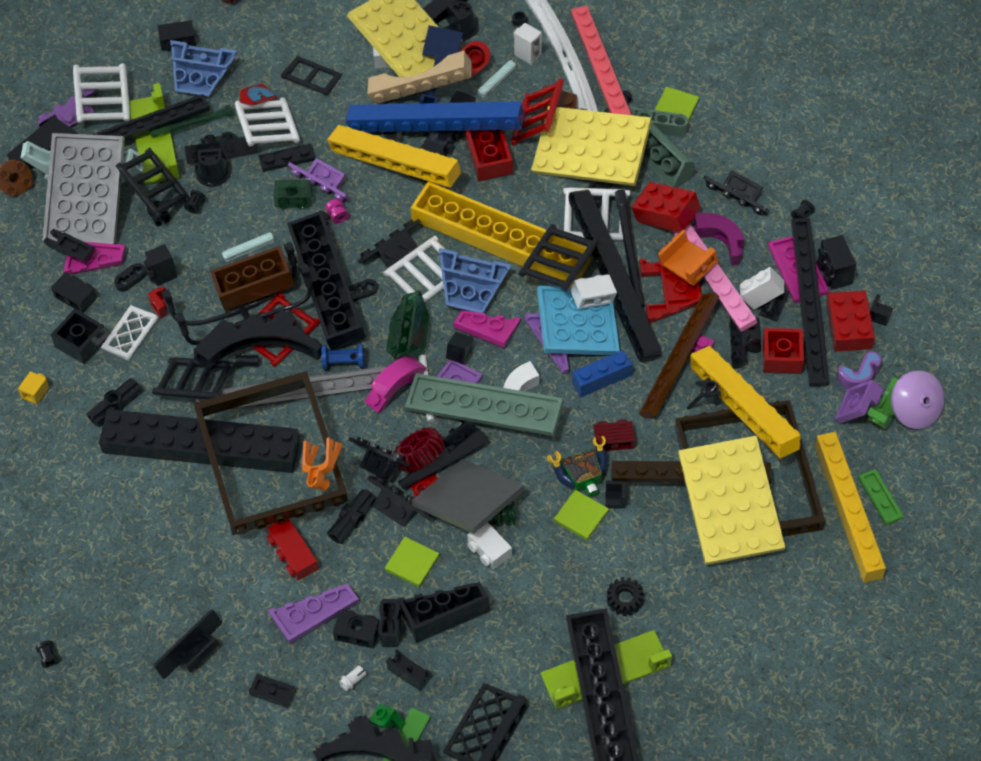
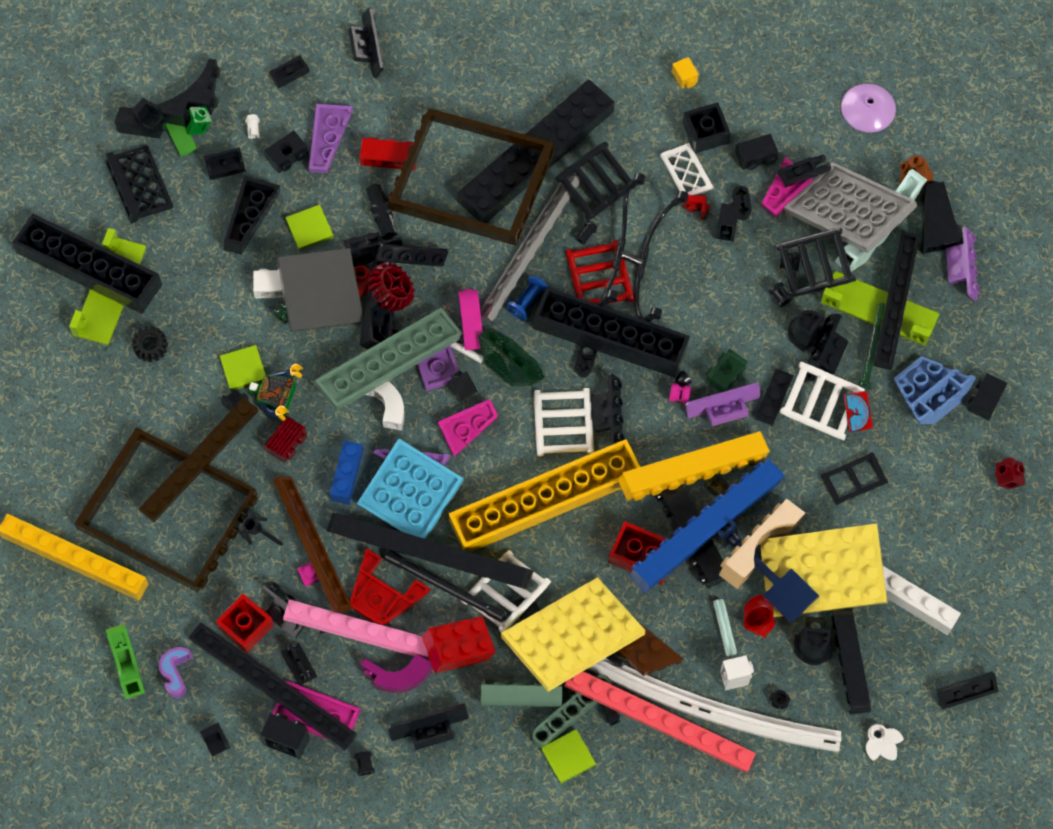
camera: 125 degrees right, 10 degrees up
(79, 101) = (956, 314): white bar -> none
(122, 395) = (625, 127): black piece -> none
(248, 246) = (701, 306): light aqua axle -> none
(252, 278) = (657, 277): reddish brown brick -> none
(254, 332) = (599, 246): black arch -> none
(316, 473) = (414, 183): orange piece -> none
(389, 622) = (267, 171): black brick -> none
(470, 281) = (520, 439): medium blue wedge -> none
(548, 114) = (644, 633): red bar -> none
(573, 271) = (455, 523): black bar -> none
(593, 291) = (422, 517): white brick -> none
(687, 259) = (390, 617): orange panel -> none
(731, 500) = (147, 464): light yellow plate -> none
(746, 402) = (220, 544): yellow brick -> none
(761, 288) = (311, 651): white brick -> none
(850, 321) = (226, 702): red brick -> none
(858, 400) = (146, 637): medium lavender plate -> none
(880, 497) = (62, 592): bright green tile -> none
(909, 396) = (107, 684): lavender dish -> none

